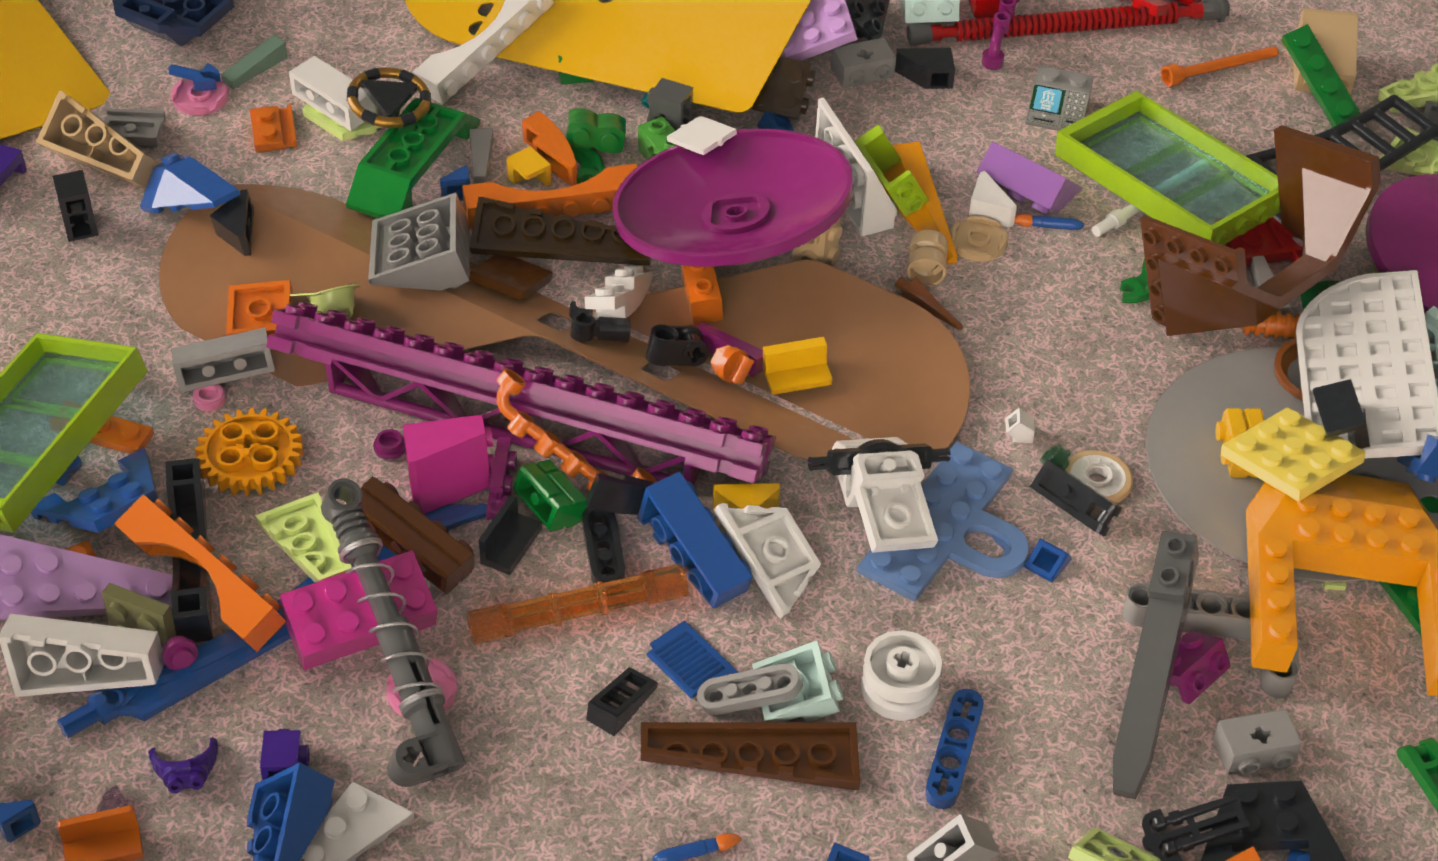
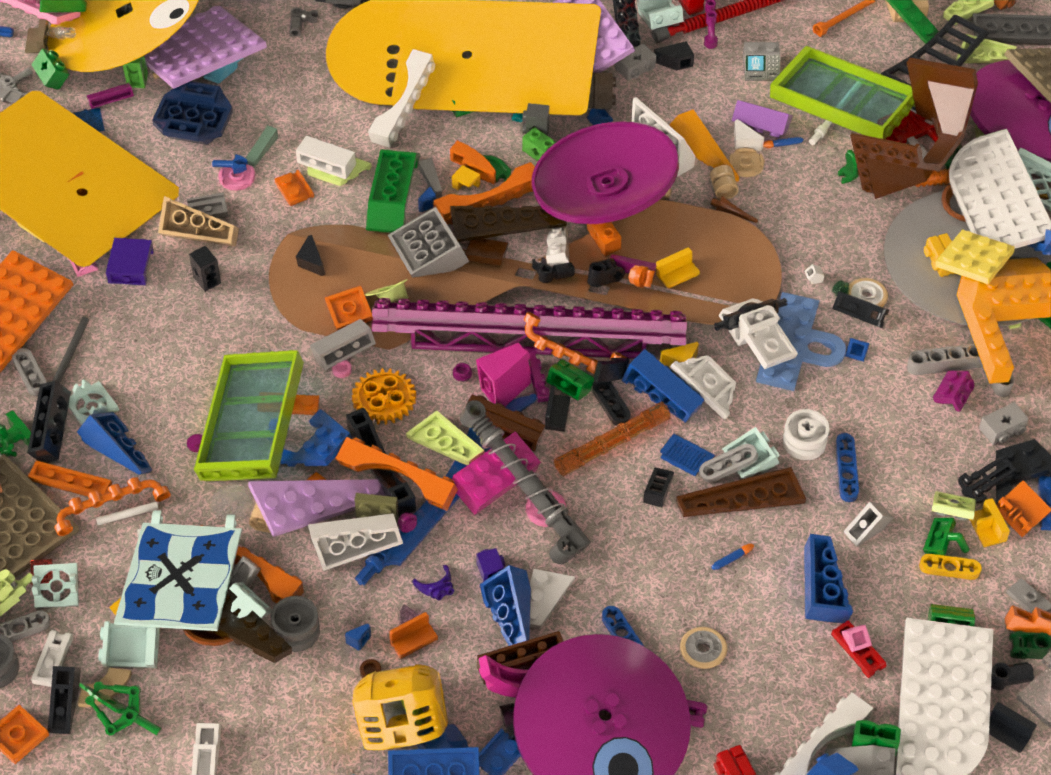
camera: 15 degrees left, 5 degrees up
(184, 183) = (265, 239): blue wedge -> none
(388, 97) = (367, 153): piece -> none
(601, 131) = (494, 145): green brick -> none
(701, 135) = (566, 135): white piece -> none
(881, 157) = (700, 145): lime panel -> none
(1154, 661) = (938, 393): dark grey piece -> none
(1341, 411) = (995, 226): black panel -> none

